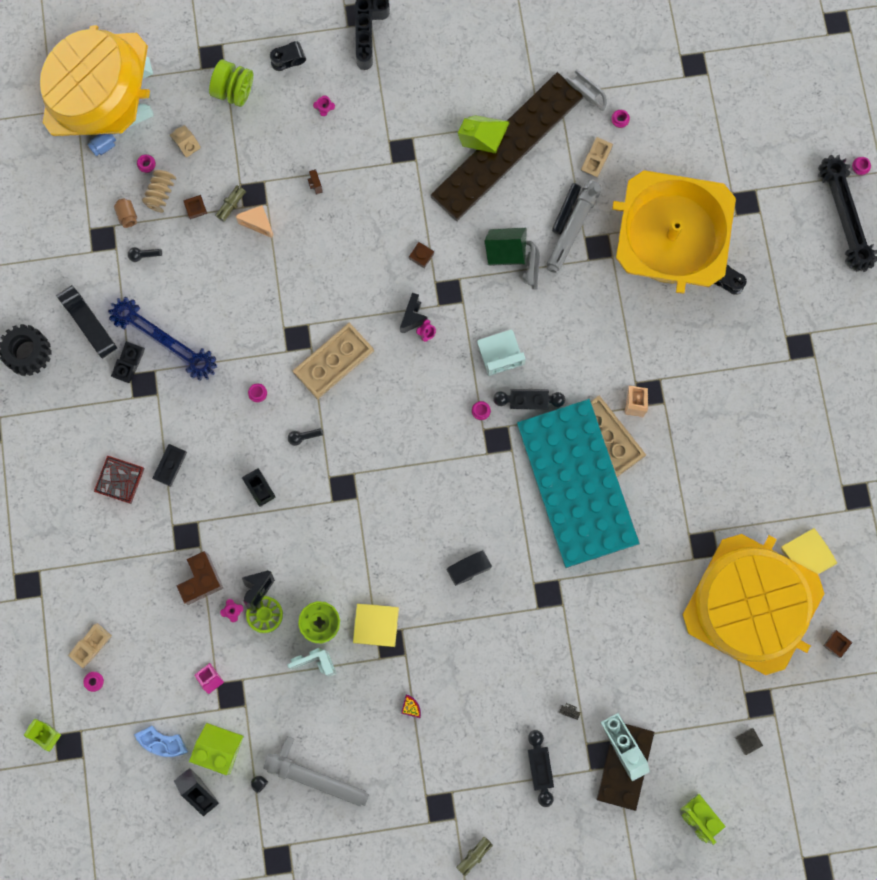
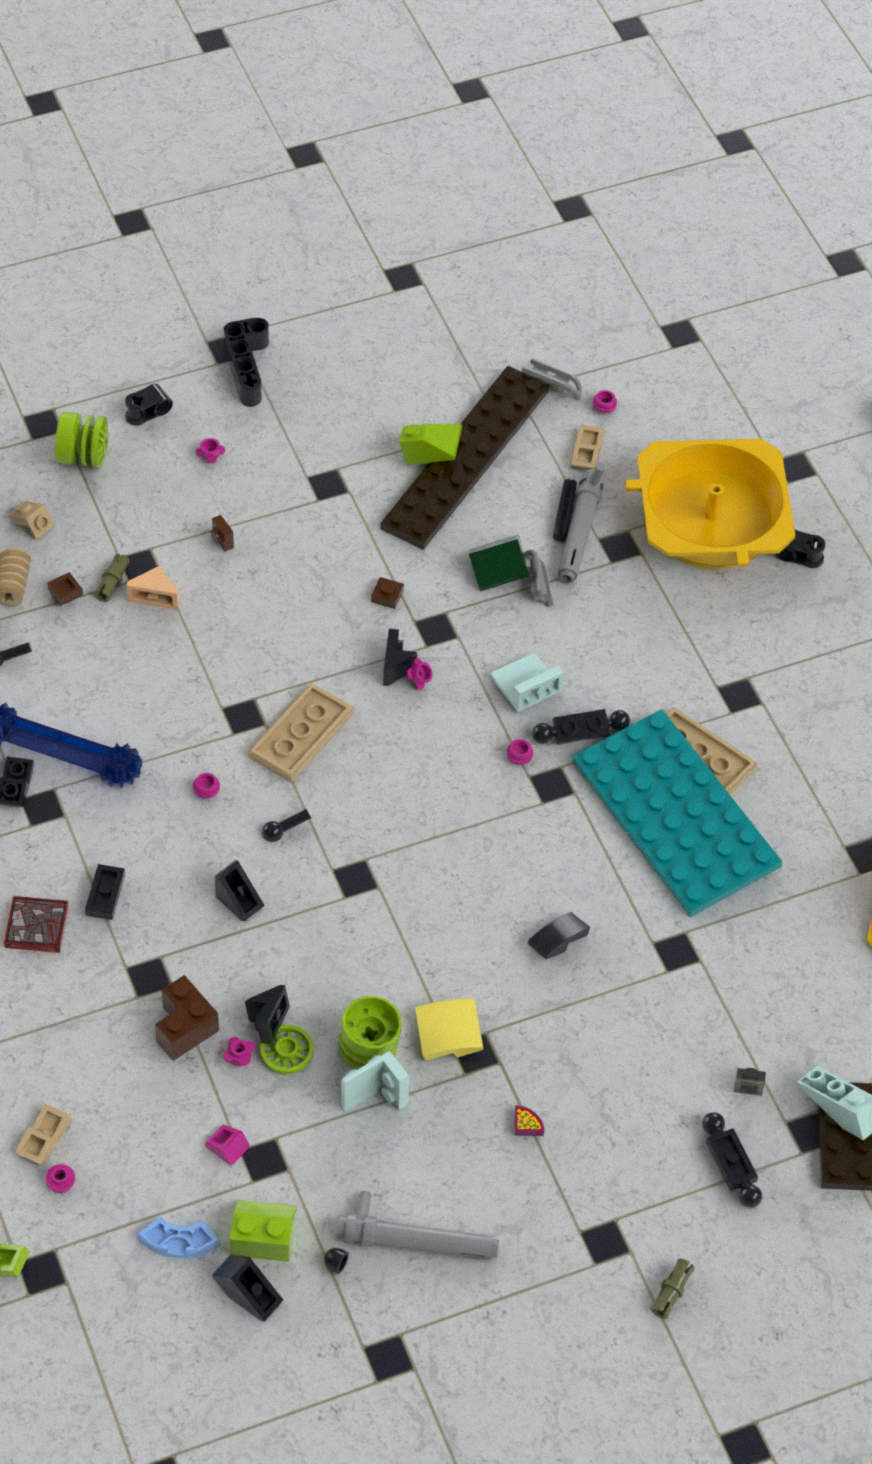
camera: 15 degrees left, 25 degrees down
(637, 401) = (726, 707): light nougat slope -> none

